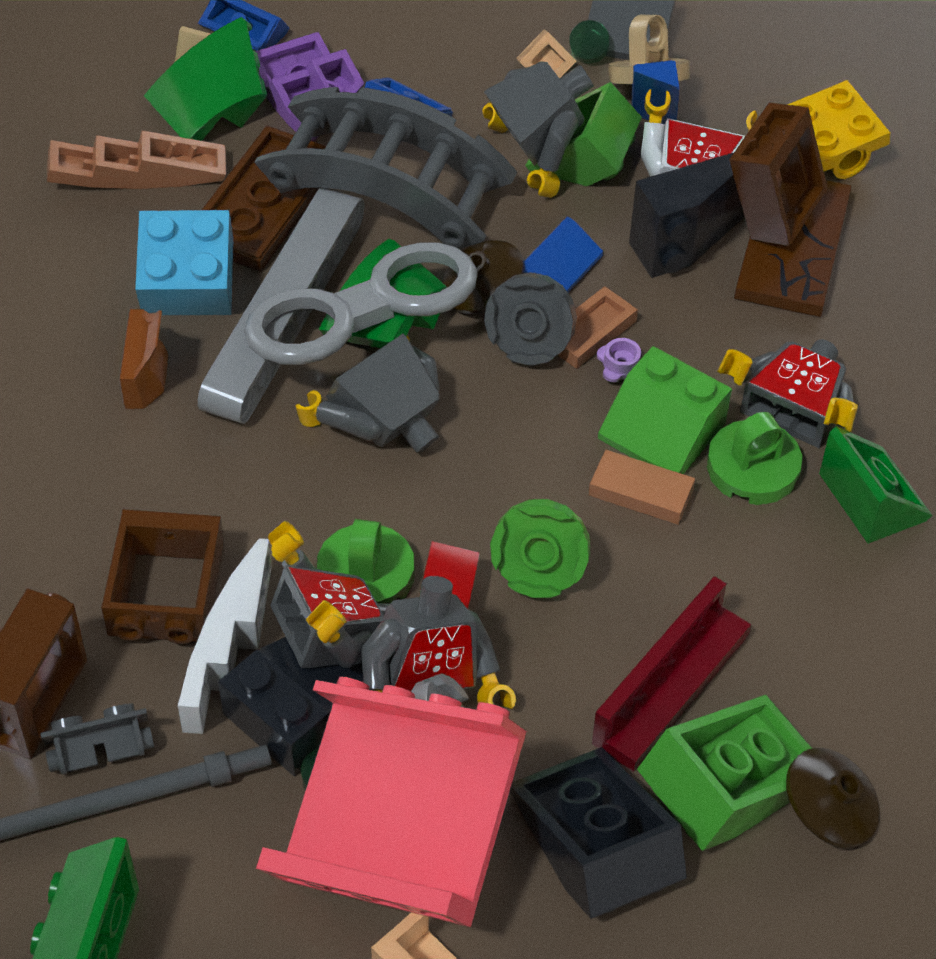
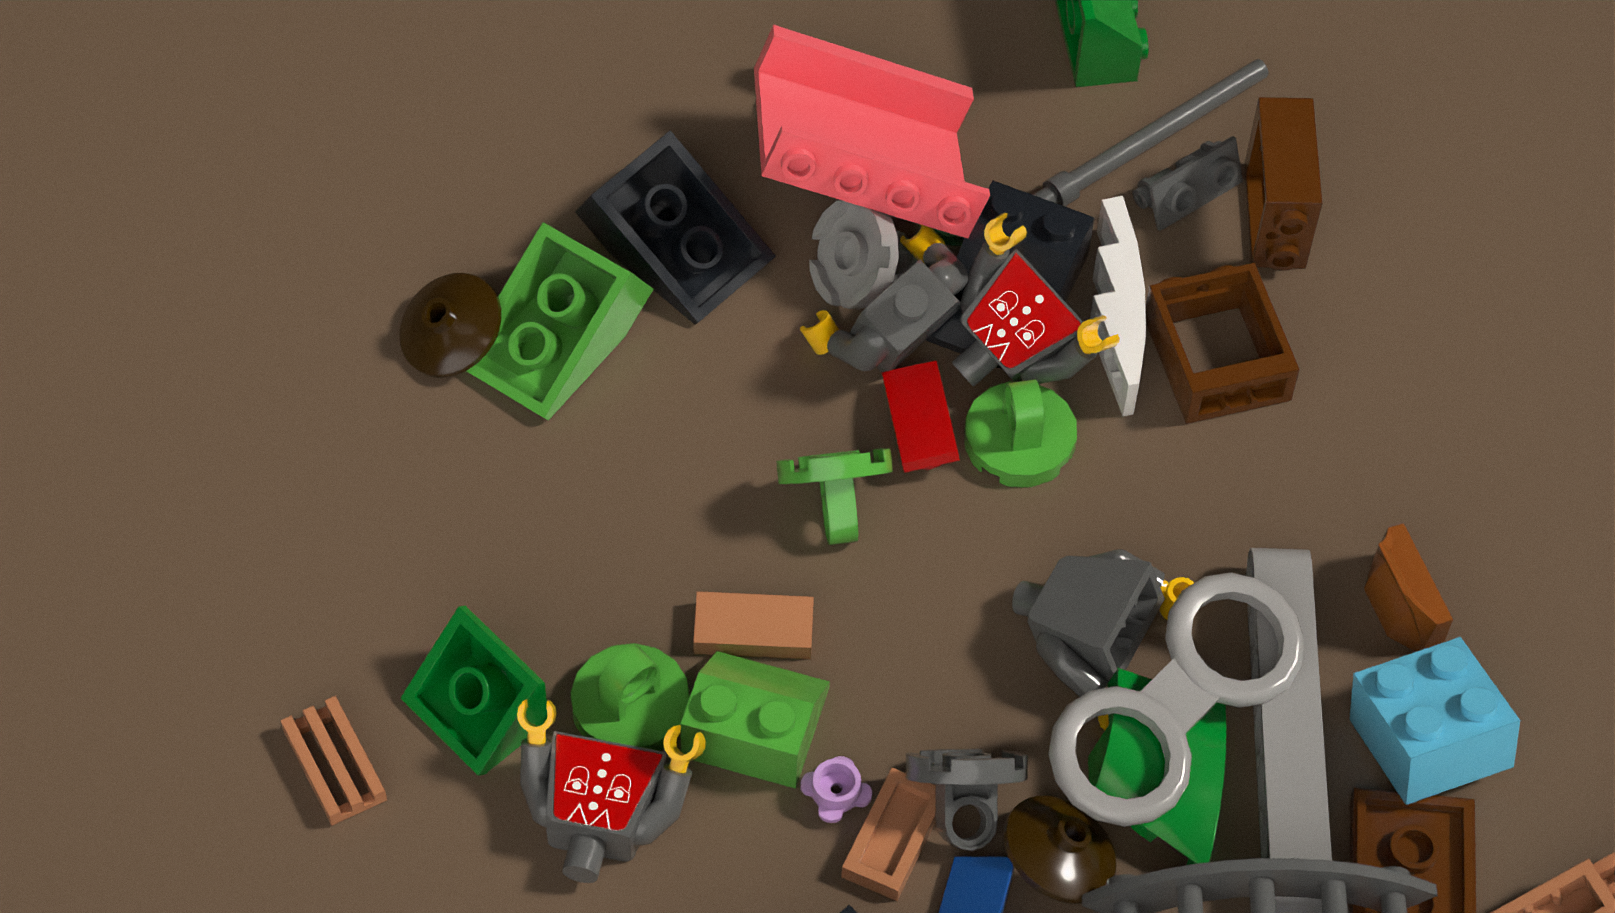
camera: 160 degrees right, 5 degrees up
(669, 677) = (647, 404): dark red fence -> none

